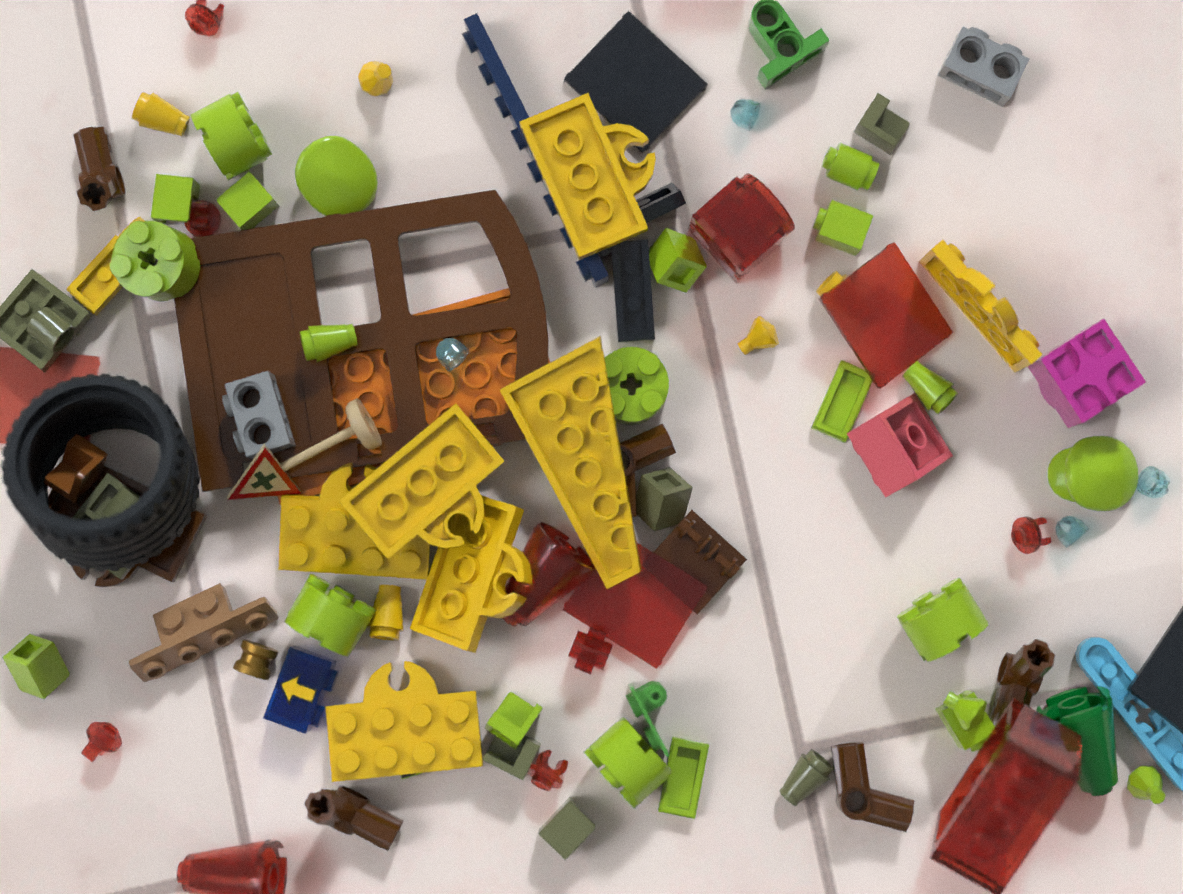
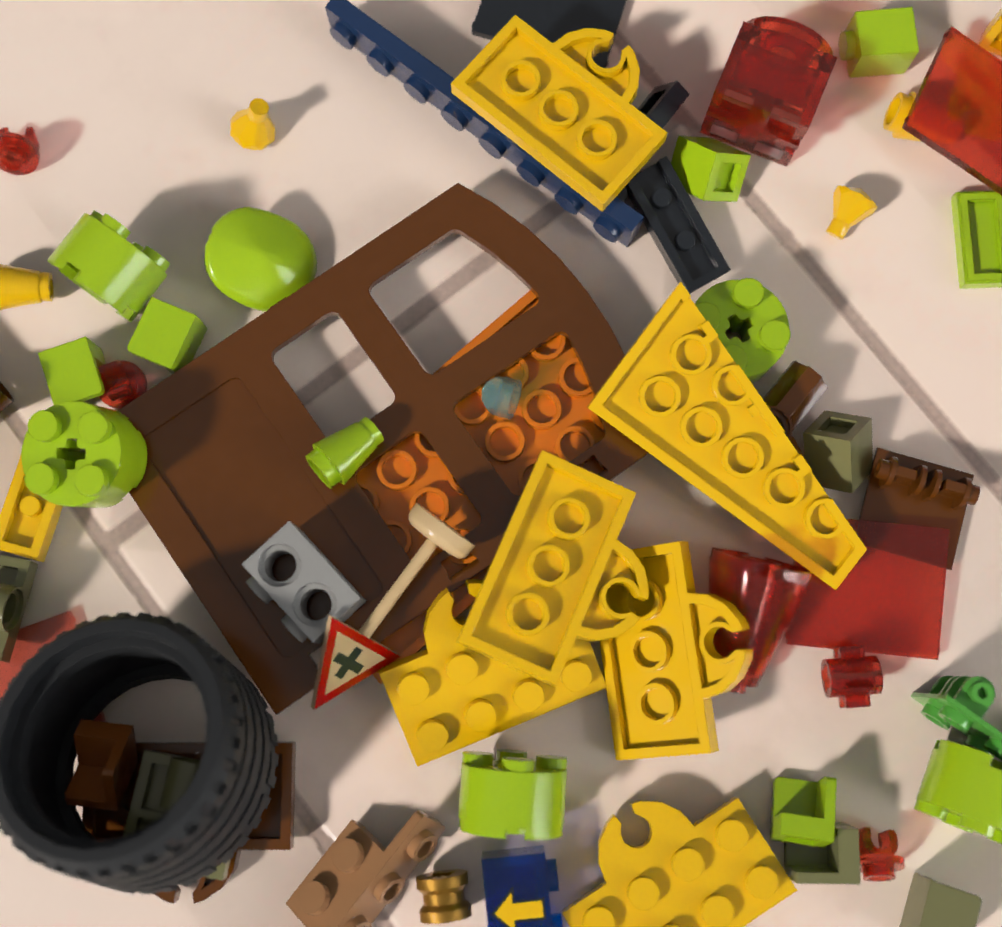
camera: 25 degrees left, 5 degrees down
(388, 618) = (584, 759): yellow cone -> none

